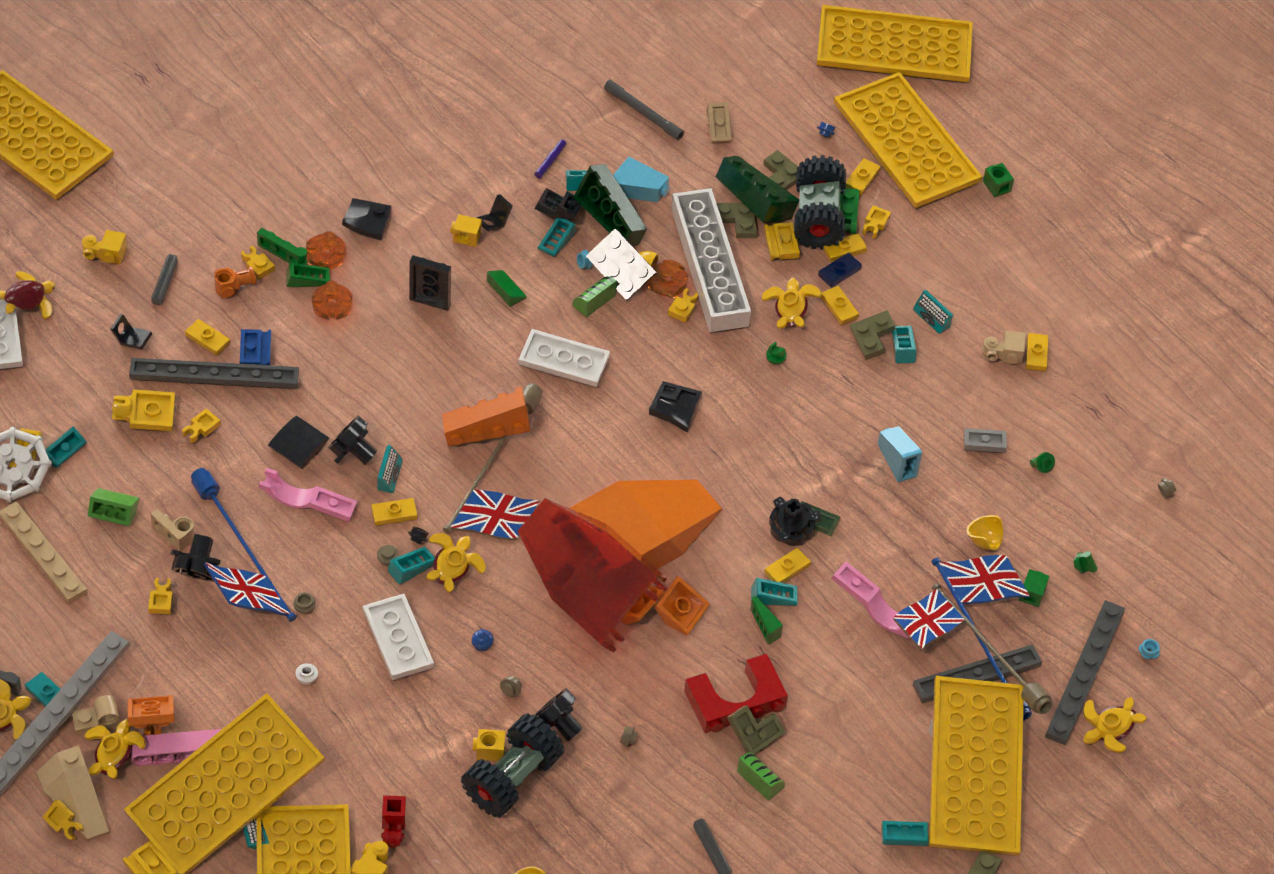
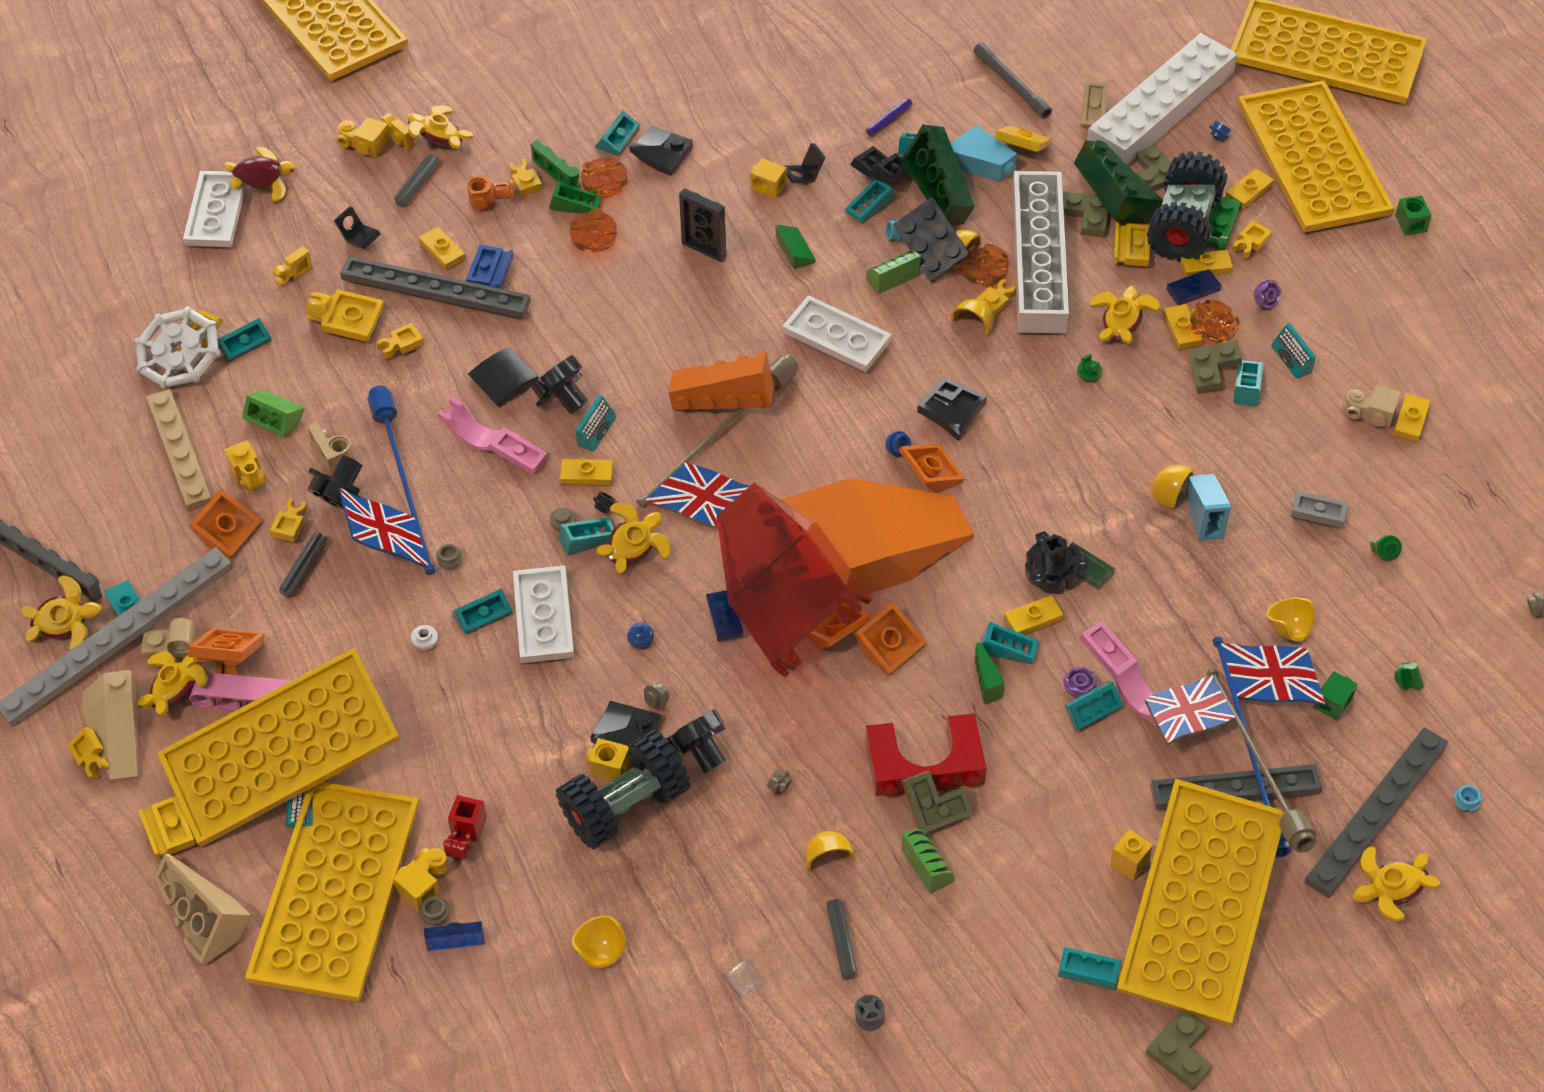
camera: 20 degrees right, 0 degrees up
(87, 372) = (295, 265): none -> yellow plate
(107, 557) = (245, 466): none -> yellow brick
(107, 609) = (224, 524): none -> orange slope
(136, 238) = (399, 132): none -> yellow plate
(169, 229) = (437, 128): none -> yellow animal
(184, 631) = (302, 564): none -> dark grey axle
(324, 210) = (618, 134): none -> teal slope
(346, 643) = (482, 611): none -> teal slope
(494, 714) = (625, 724): none -> black plate
(544, 610) = (724, 618): none -> clear blue plate
(641, 443) = (895, 441): none -> blue plate
(669, 162) = (1023, 138): none -> yellow plate
(672, 316) = (979, 308): none -> yellow helmet
(674, 457) = (932, 466): none -> orange slope
(680, 777) = (826, 842): none -> yellow helmet
(774, 107) = (1164, 97): none -> white brick
(838, 608) = (1076, 676): none -> medium lavender plate
(854, 630) = (1093, 705): none -> teal plate
(864, 440) = (1169, 483): none -> yellow helmet
(874, 298) = (1204, 326): none -> clear orange plate
(900, 266) = (1267, 294): none -> medium lavender plate
(913, 741) = (1131, 854): none -> yellow brick

